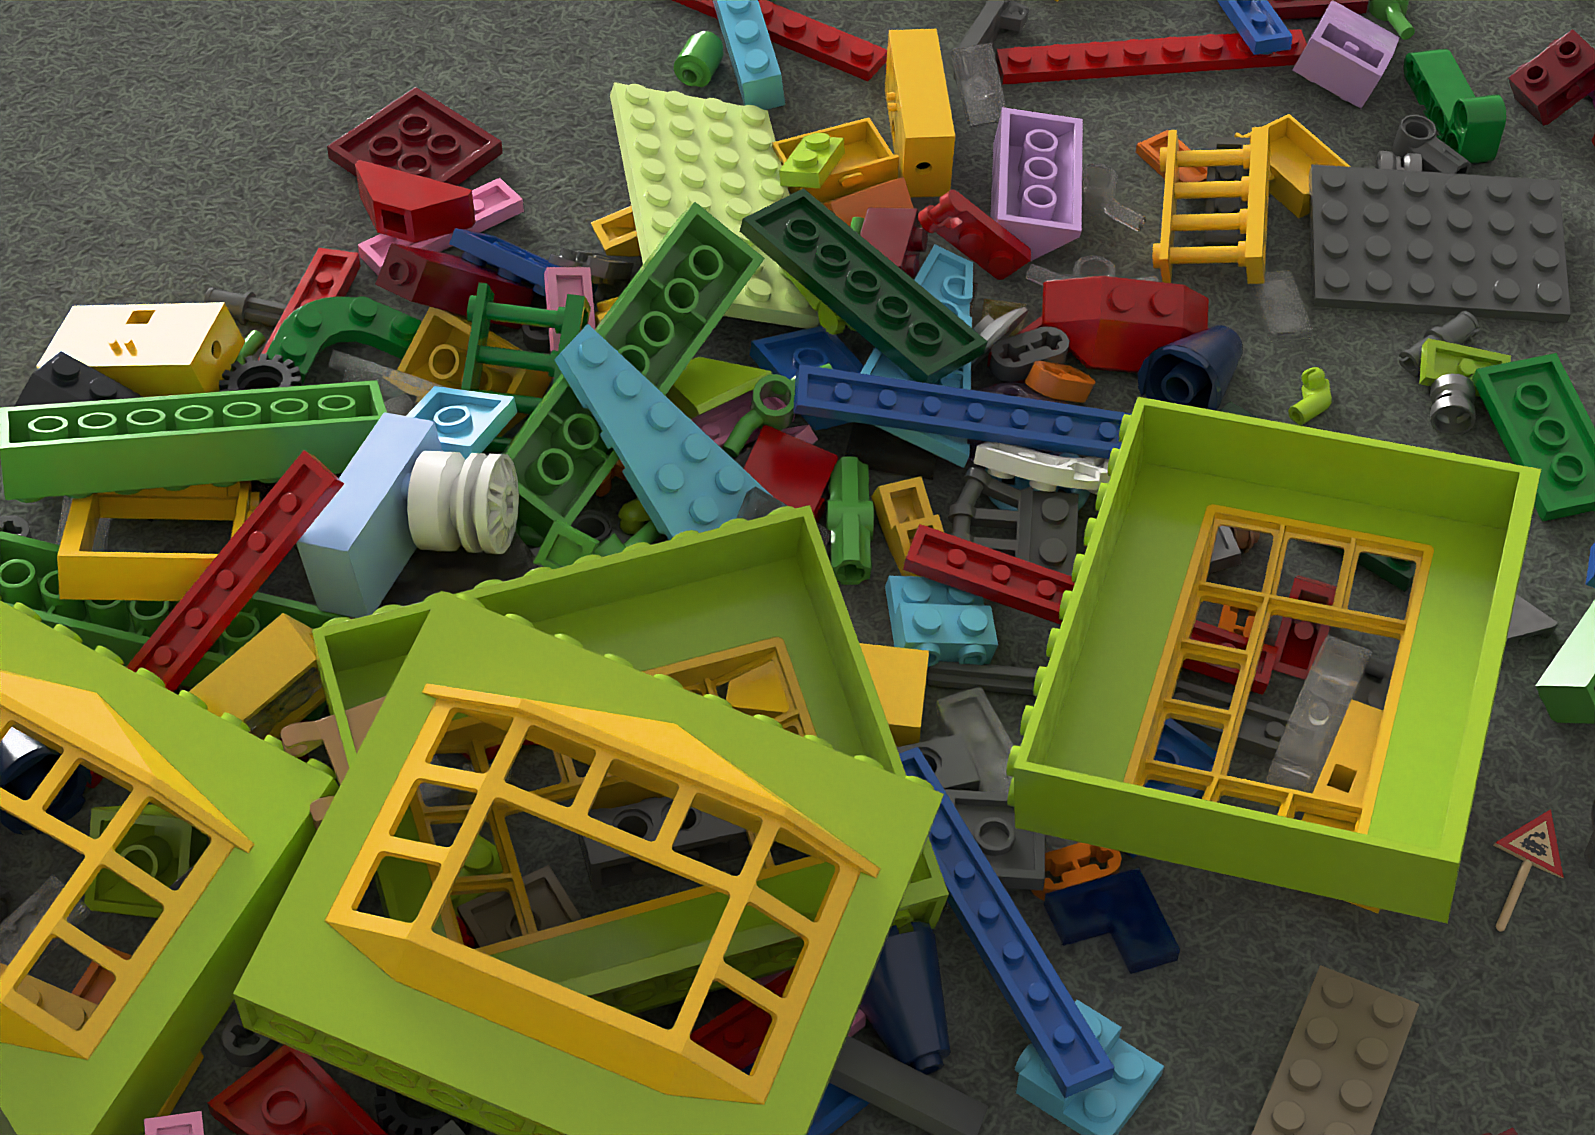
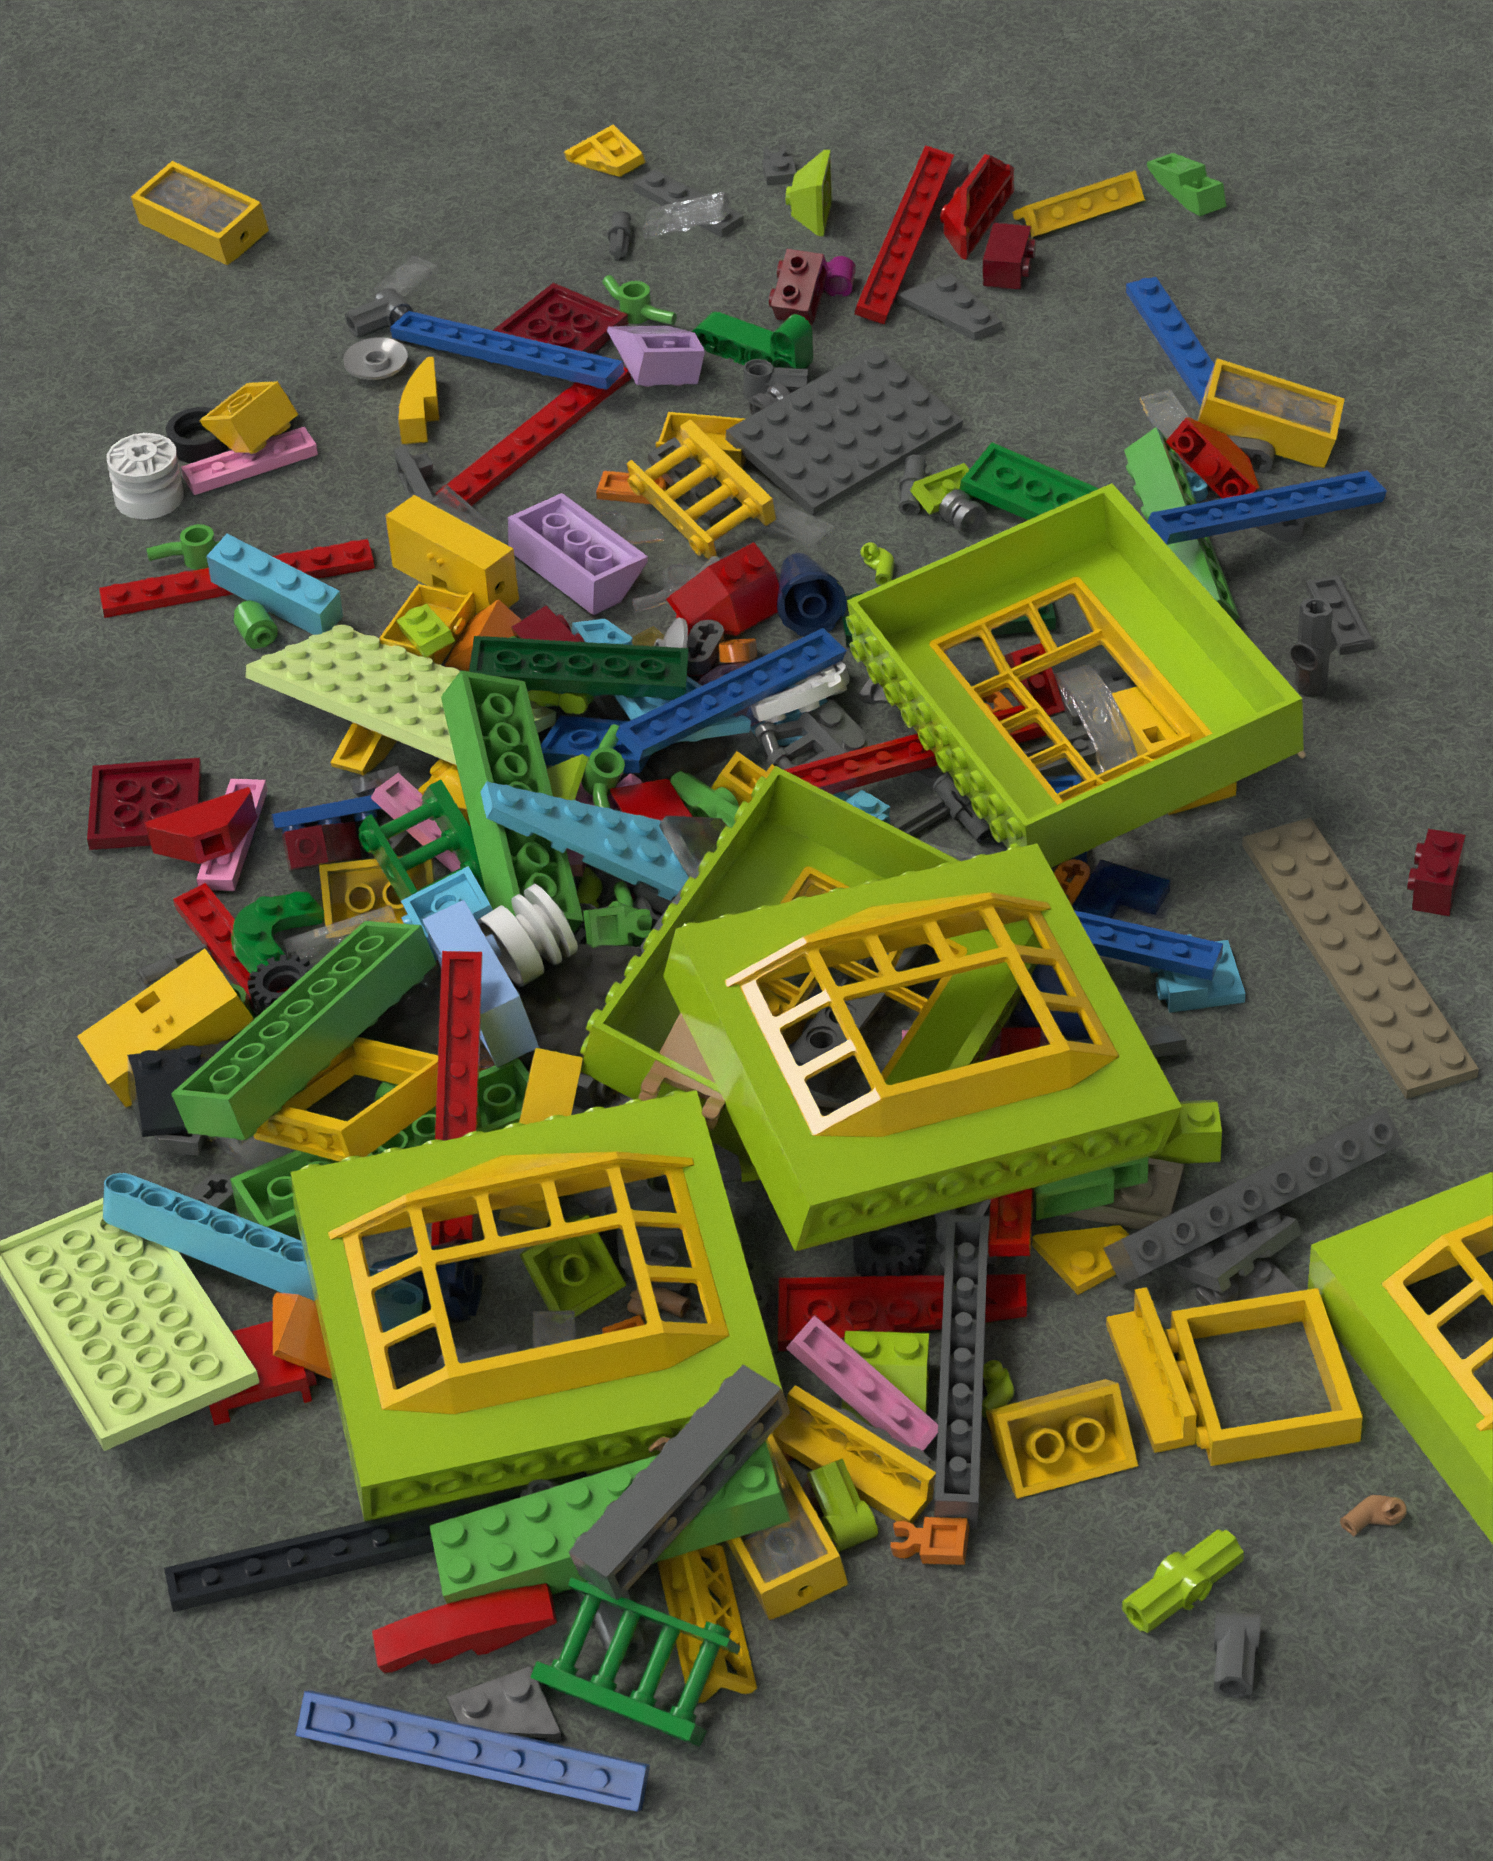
camera: 40 degrees left, 5 degrees down
(975, 235) = (589, 600): red plate -> none

